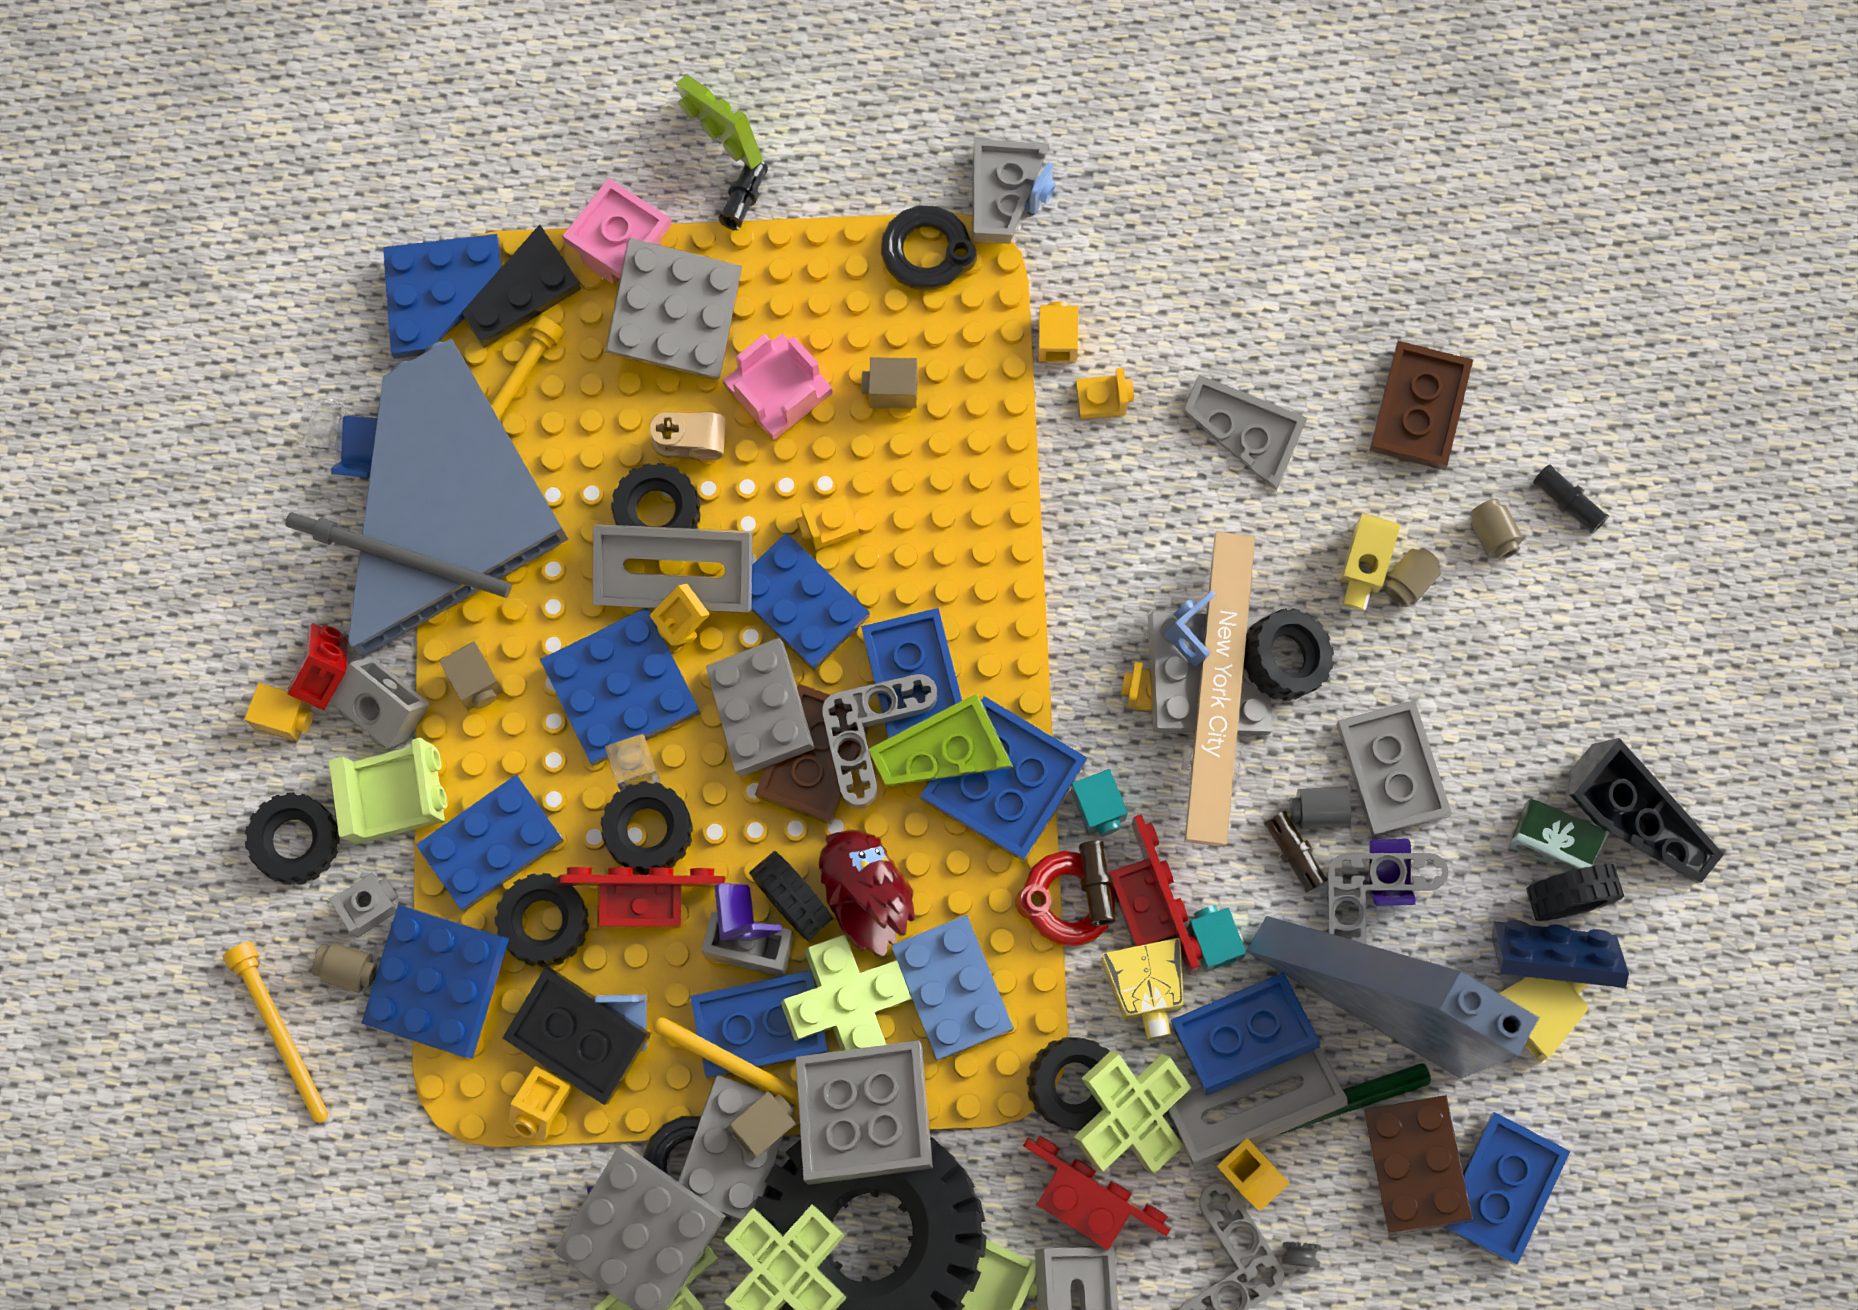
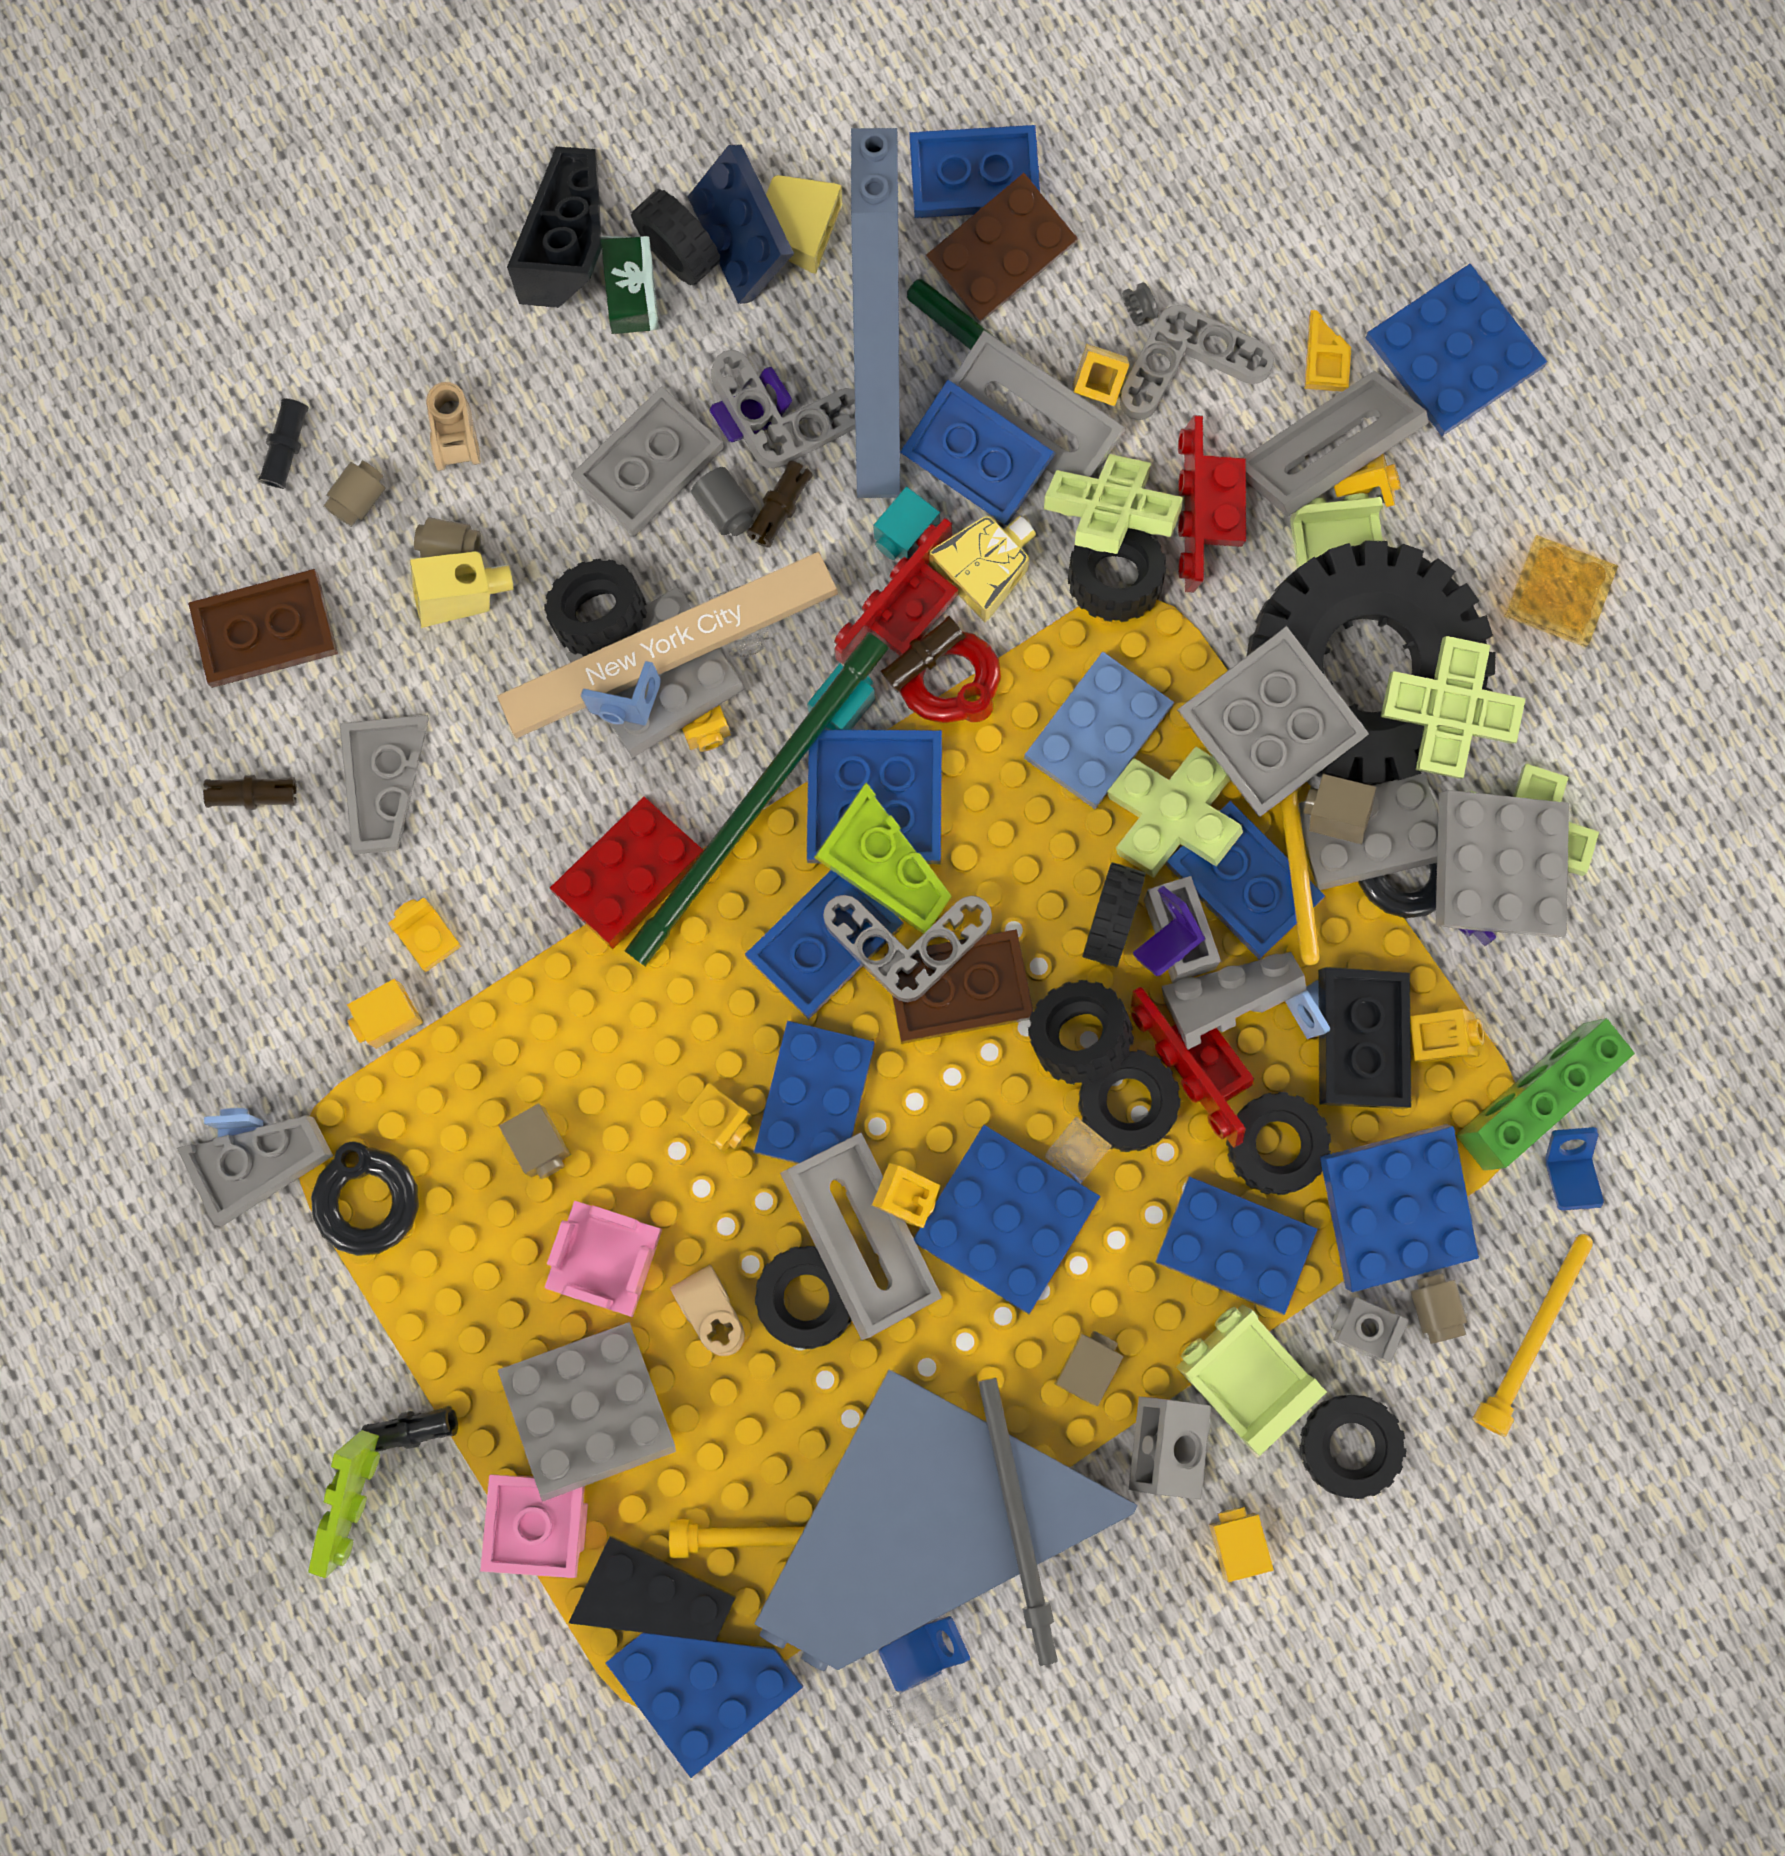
camera: 120 degrees left, 5 degrees up
(321, 668) = (1168, 1522): red bracket -> none
(372, 1138) = (1573, 1170): none -> blue bracket
(443, 1150) = (1545, 1094): none -> bright green brick
(675, 952) = (1222, 996): none -> light grey wing
(691, 831) = (1089, 1063): none -> black tyre
(759, 707) = (947, 1064): light grey plate -> none
(865, 890) = (1062, 851): dark red head -> none
(1060, 565) = (627, 872): none -> red plate
(1110, 814) = (854, 671): none -> dark green piece
(1292, 329) = (250, 792): none -> dark brown pin
(1506, 631) = (452, 434): none -> tan piece

